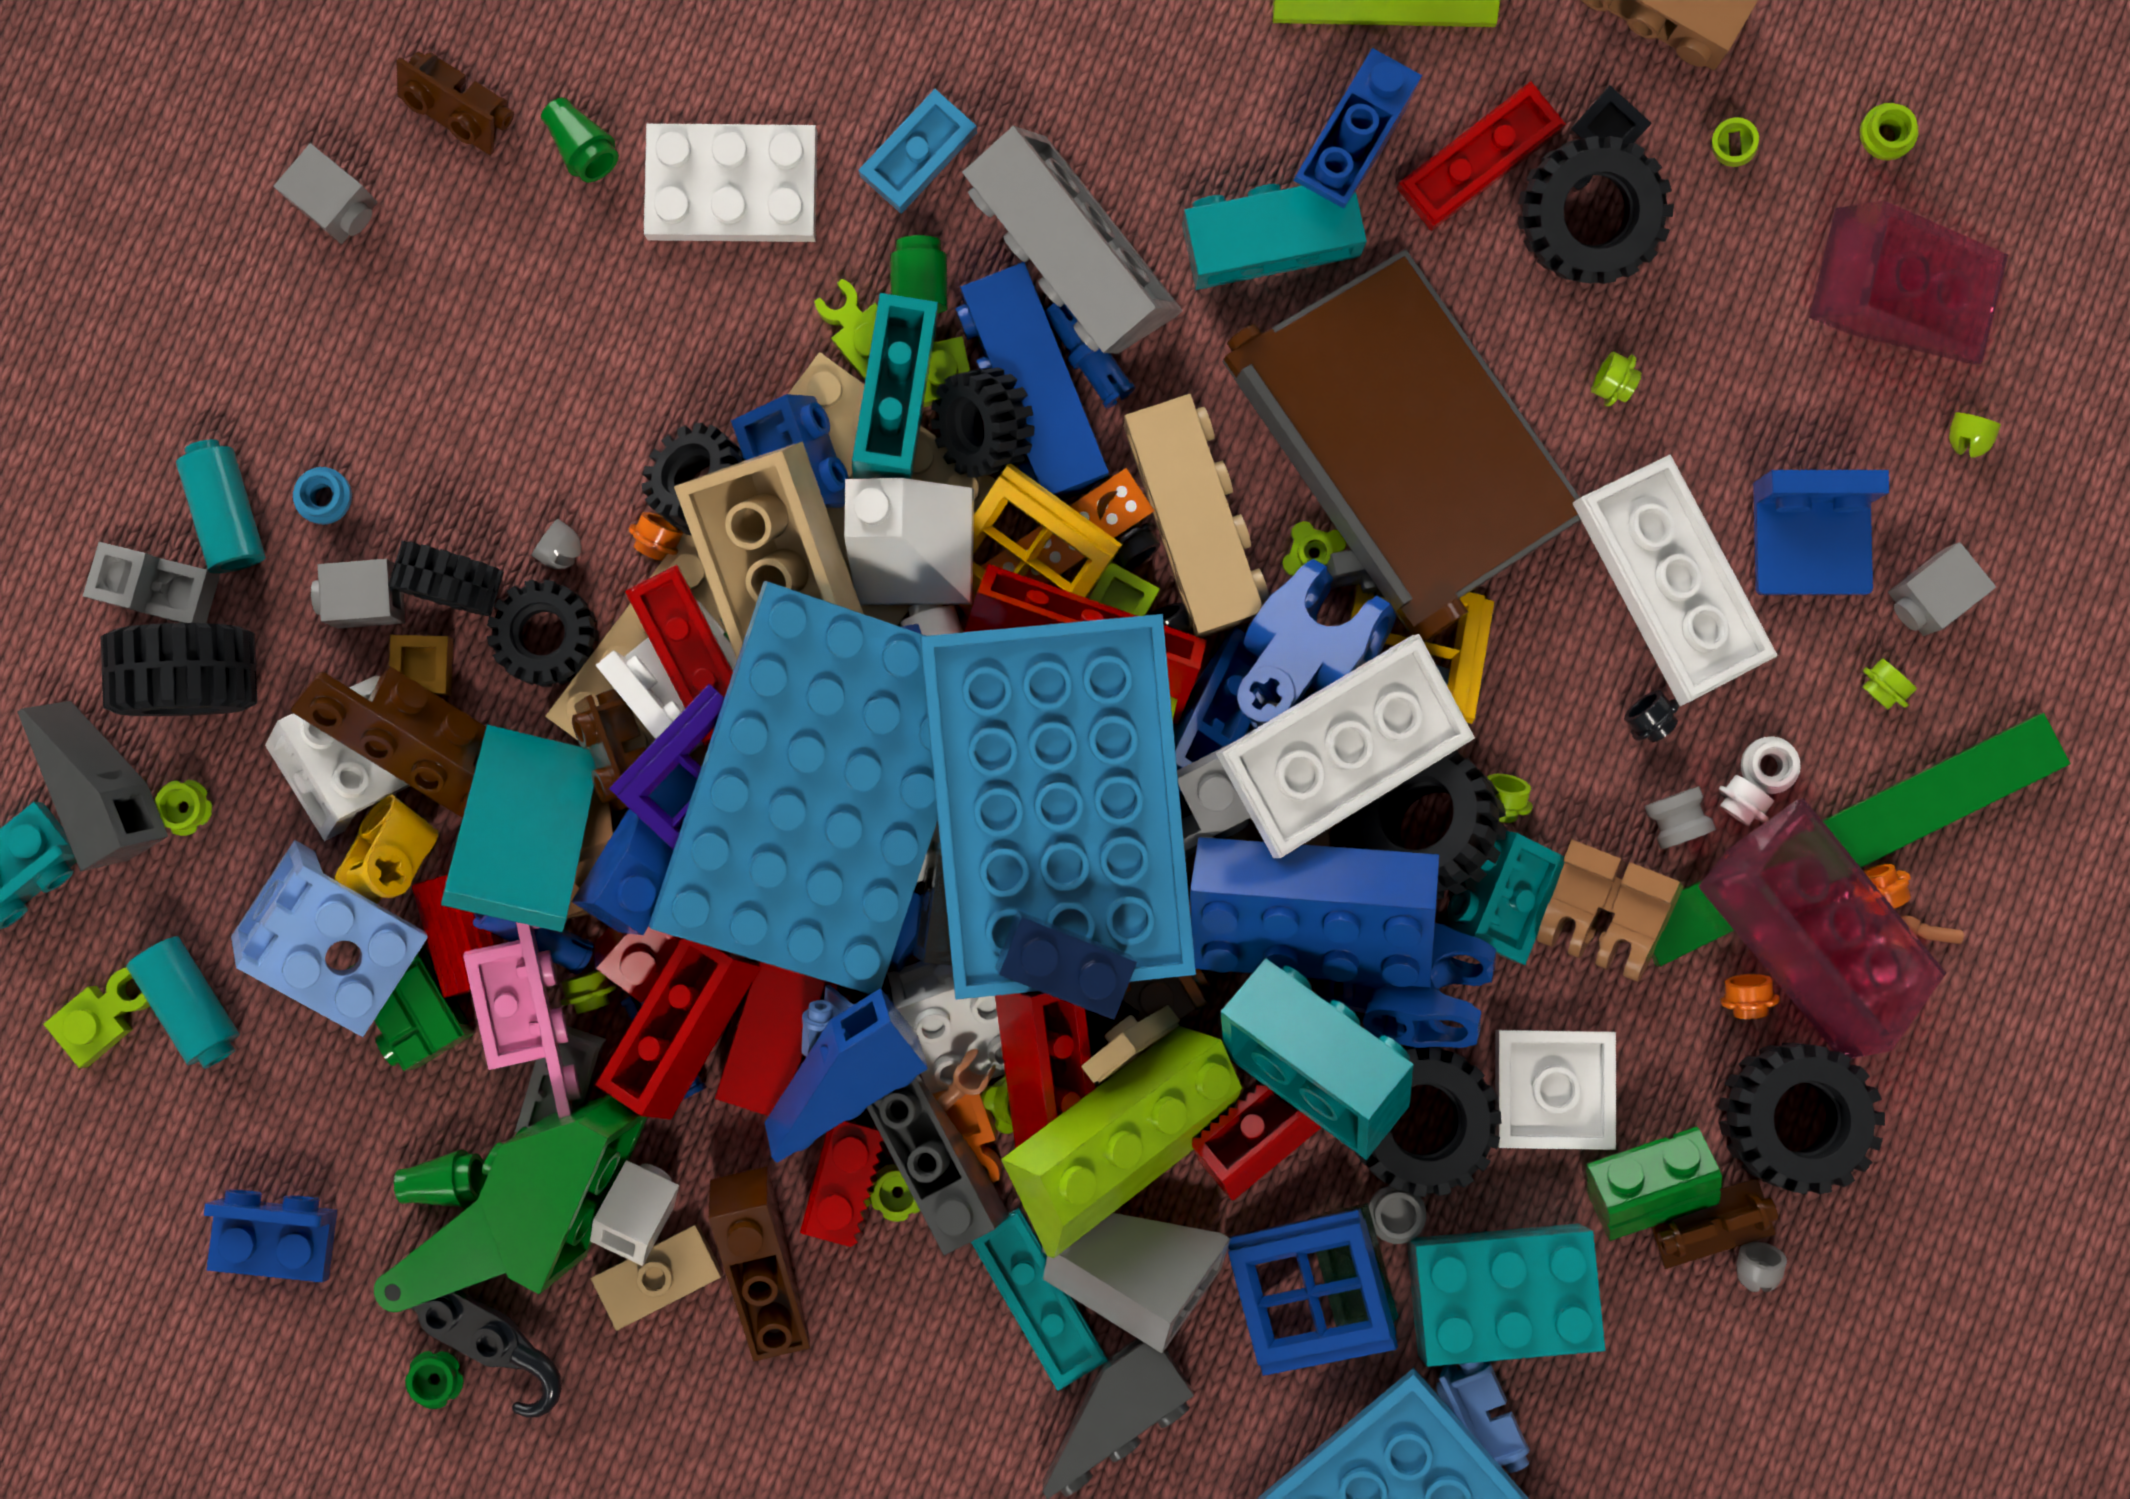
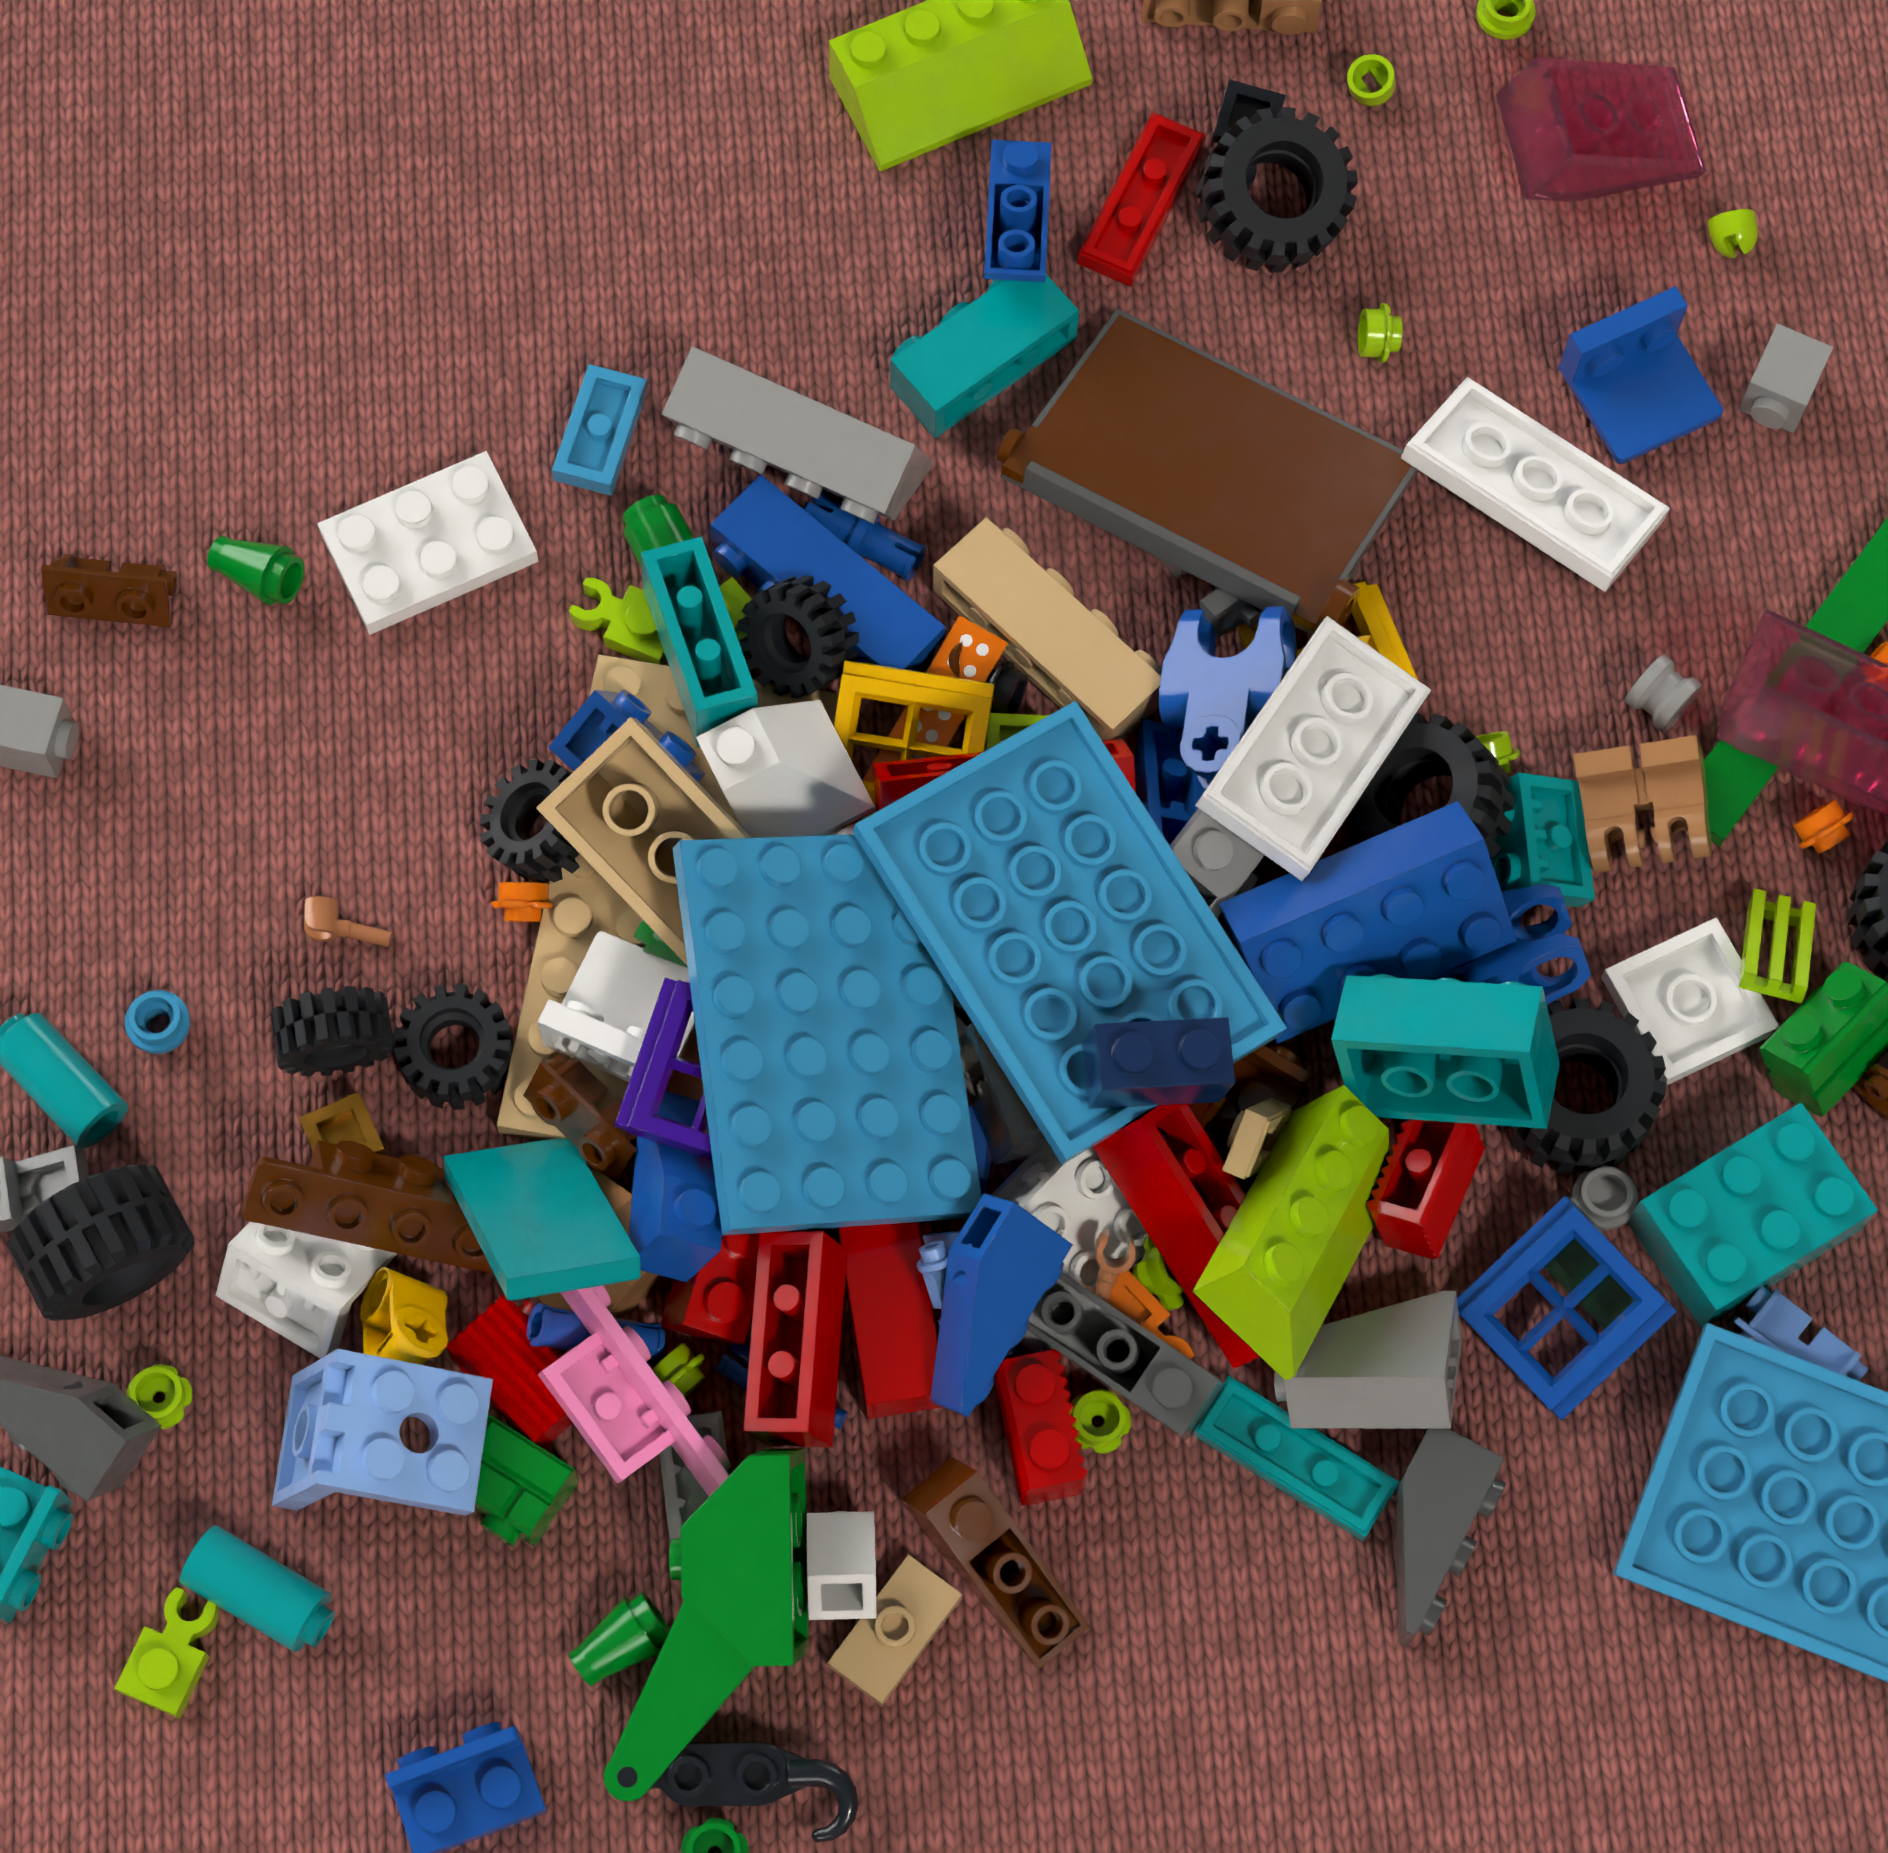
camera: 30 degrees left, 15 degrees down
(357, 594) = (245, 1095): light grey brick -> none
(490, 474) = (324, 925): none -> nougat hand
(558, 546) = (423, 951): light grey hinge -> none
(681, 635) = (603, 970): red tile -> none
(1306, 538) = (1166, 608): lime plate -> none
(1652, 717) = (1585, 616): black plate -> none
(1675, 1051) = (1782, 916): none -> lime tile
(1745, 801) = (1715, 651): white plate -> none
(1785, 756) = (1724, 594): white plate -> none
(1888, 685) = (1786, 485): lime plate -> none

